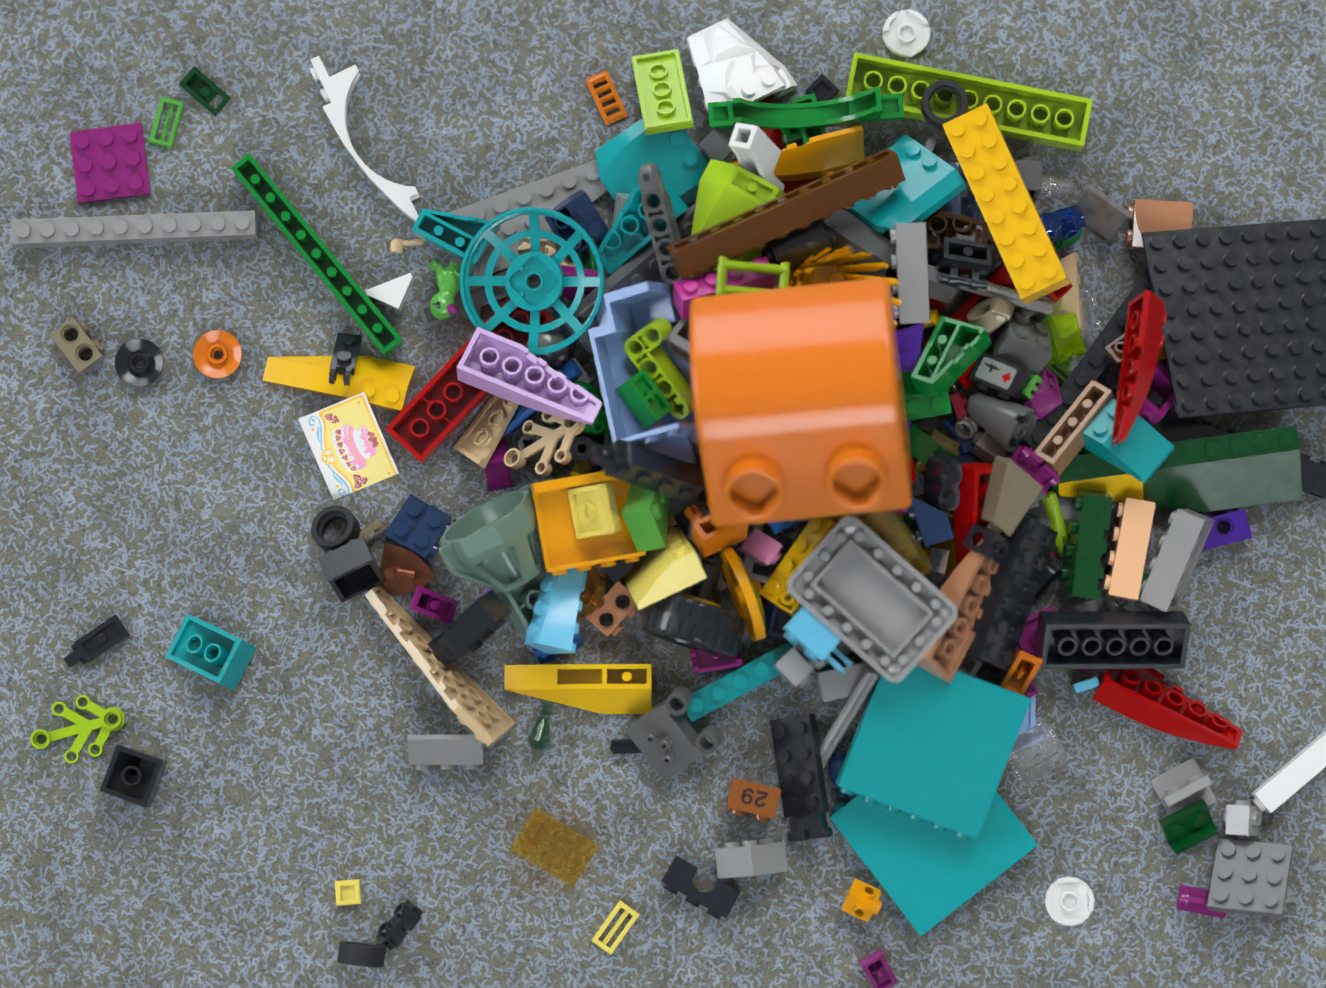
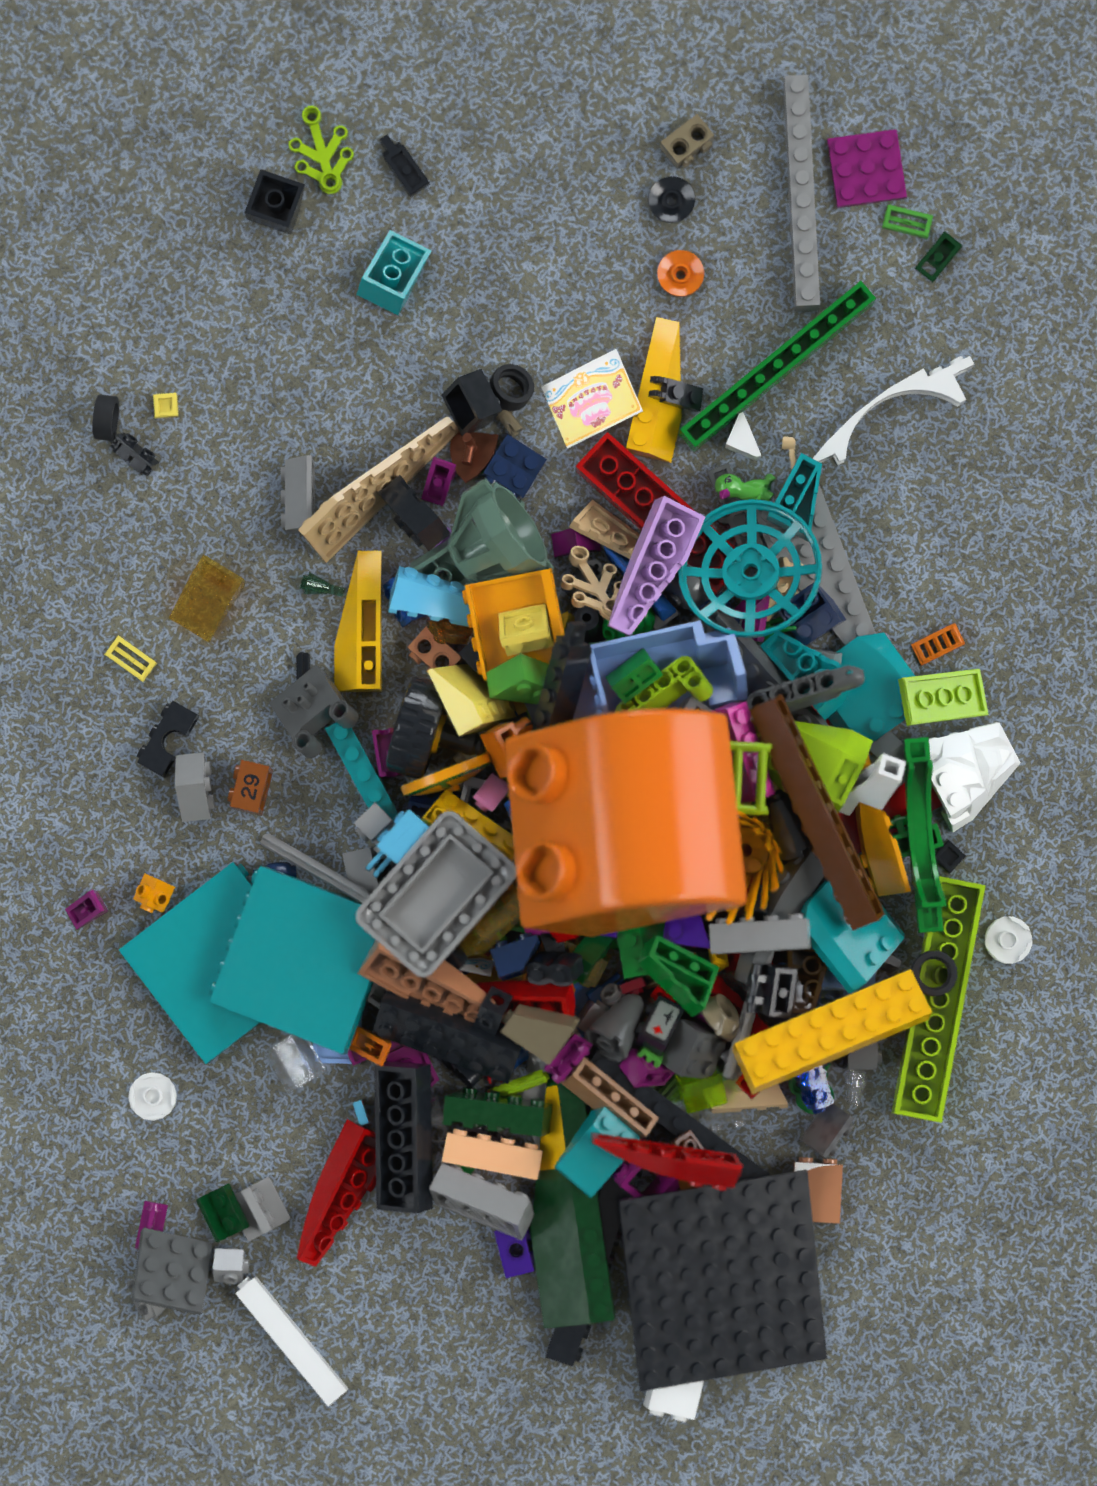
camera: 90 degrees right, 0 degrees up
(801, 777) = (272, 834): black hinge -> none

